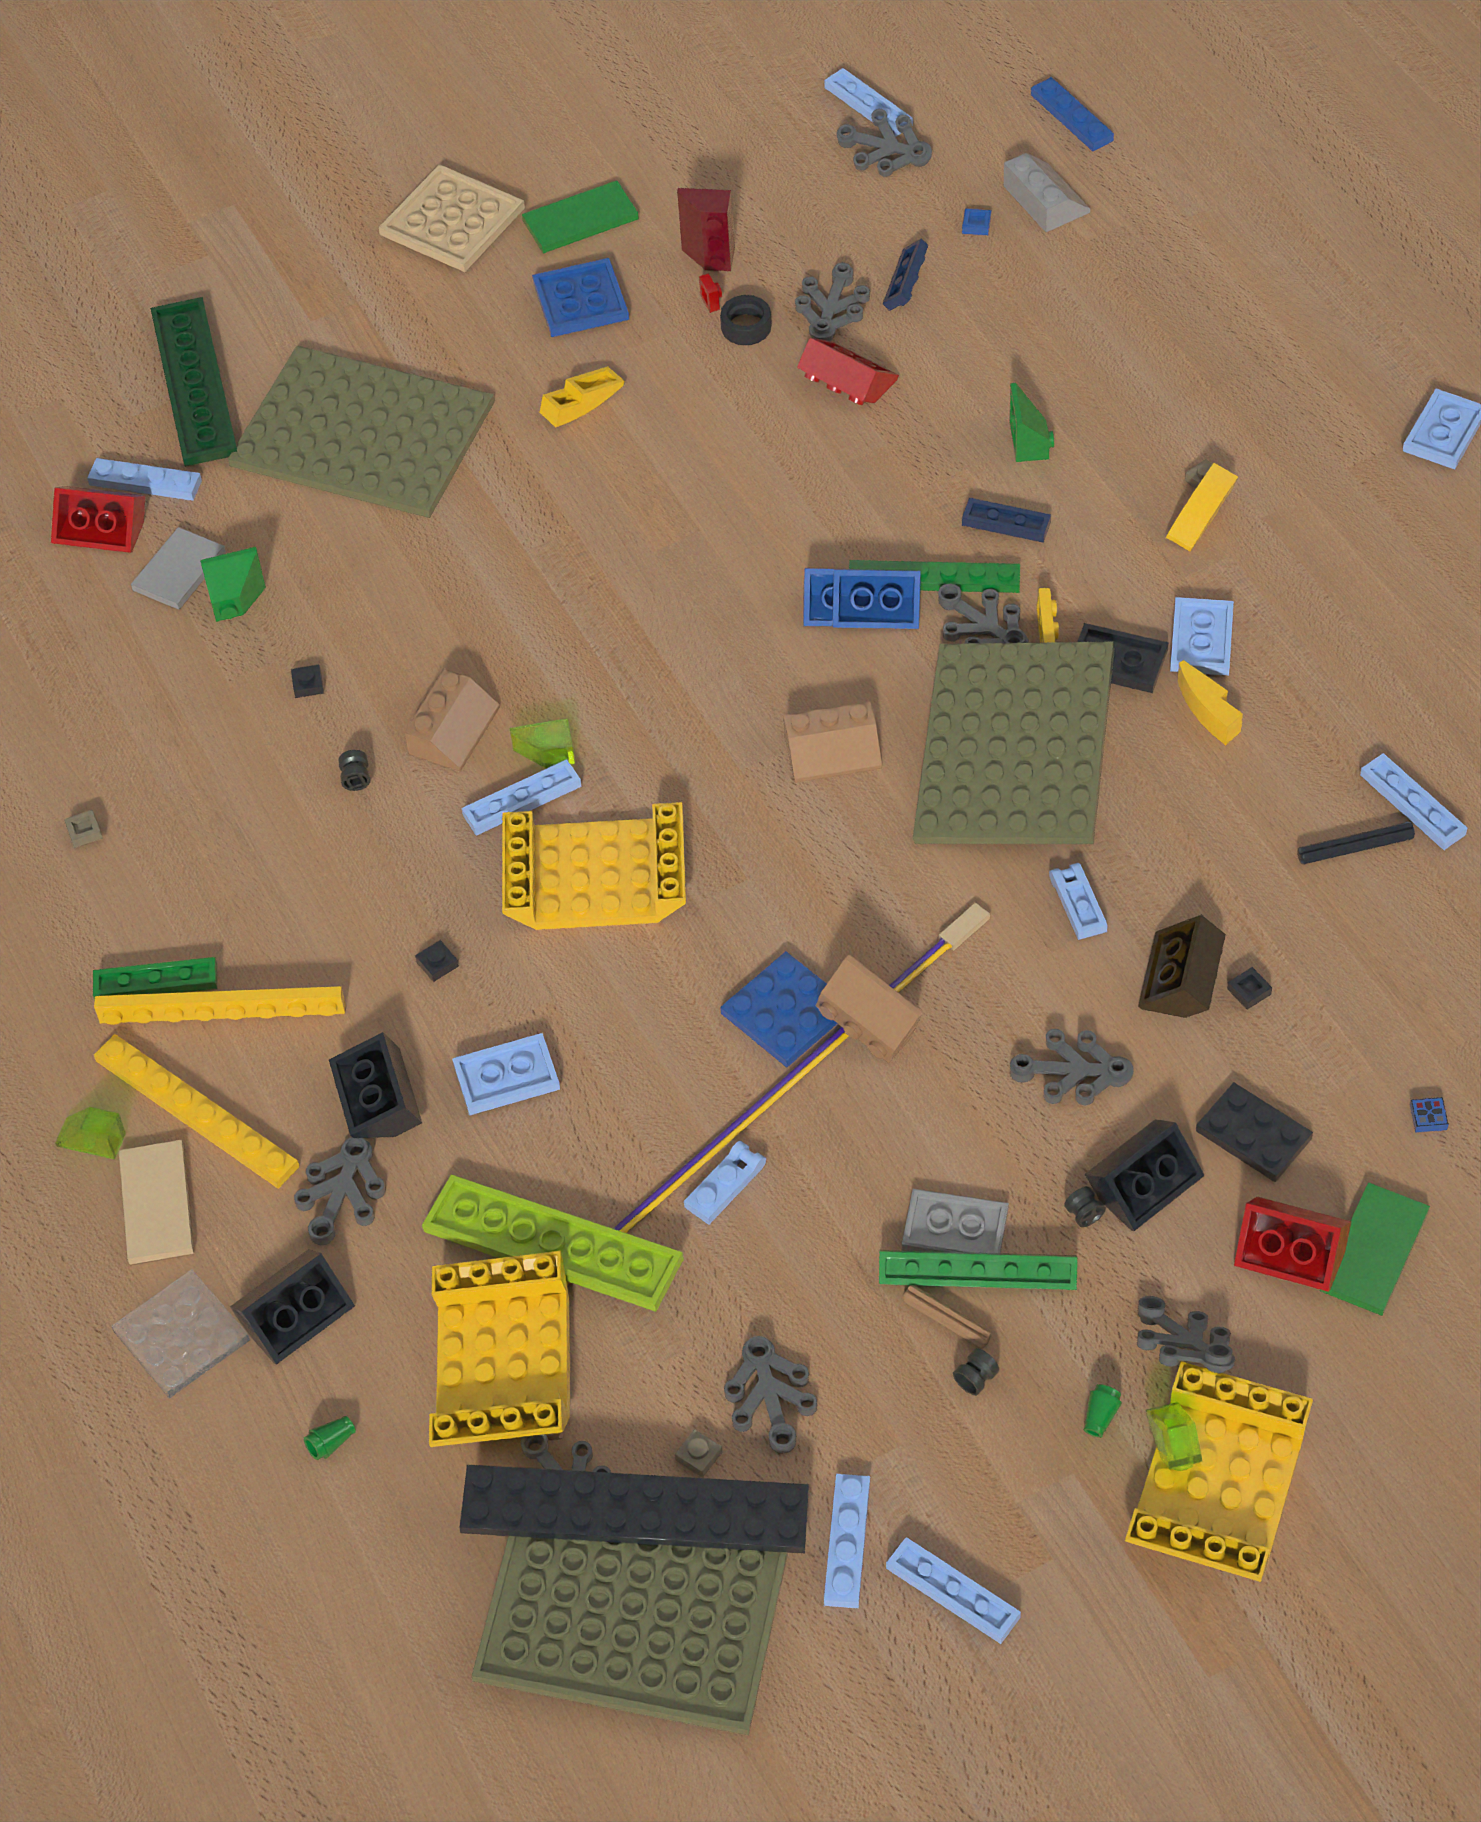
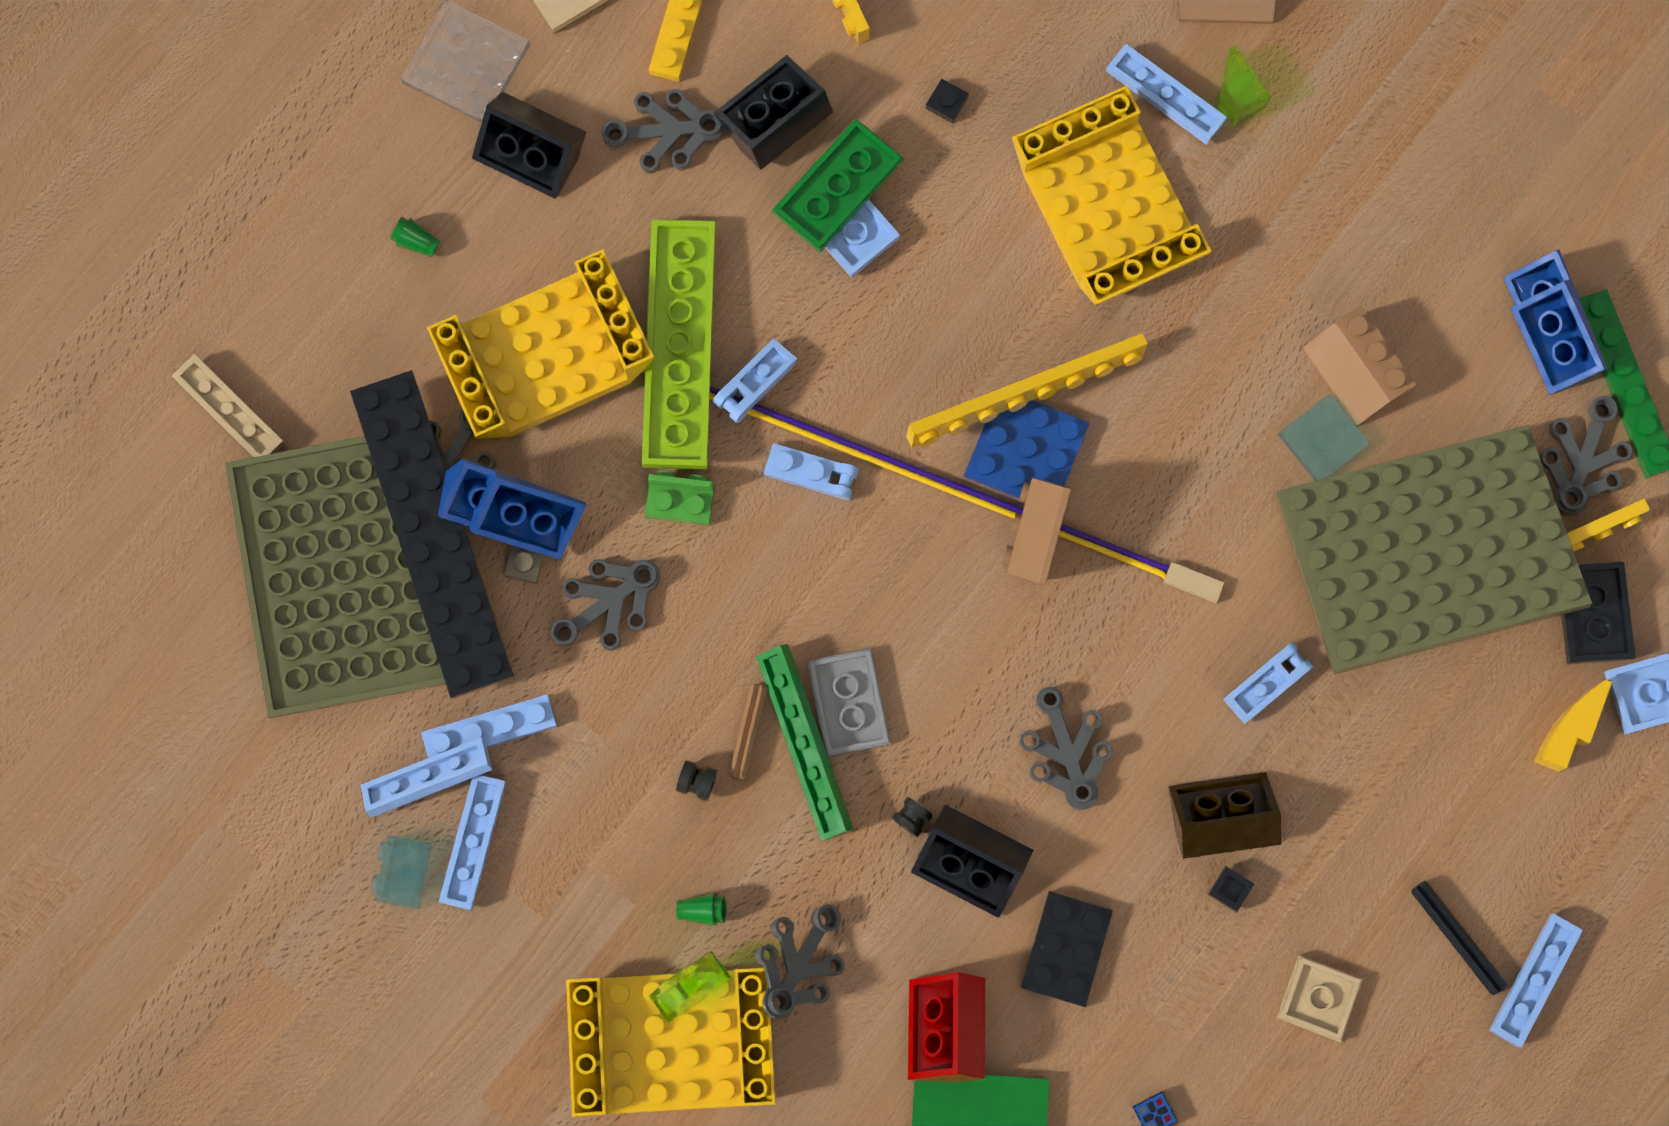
camera: 65 degrees right, 25 degrees up
(411, 1669) = (227, 408): none -> tan plate
(472, 1063) = (837, 185): none -> green tile
(618, 1192) = (755, 380): none -> light blue plate
(642, 1427) = (509, 508): none -> blue slope
(698, 1296) = (679, 498): none -> bright green bracket
(738, 986) = (1016, 395): none -> yellow plate
(872, 1606) = (426, 777): none -> light blue plate
(881, 792) = (1323, 439): none -> clear light blue tile
(956, 1667) = (401, 872): none -> clear light blue bracket
(1371, 959) = (1319, 998): none -> tan tile

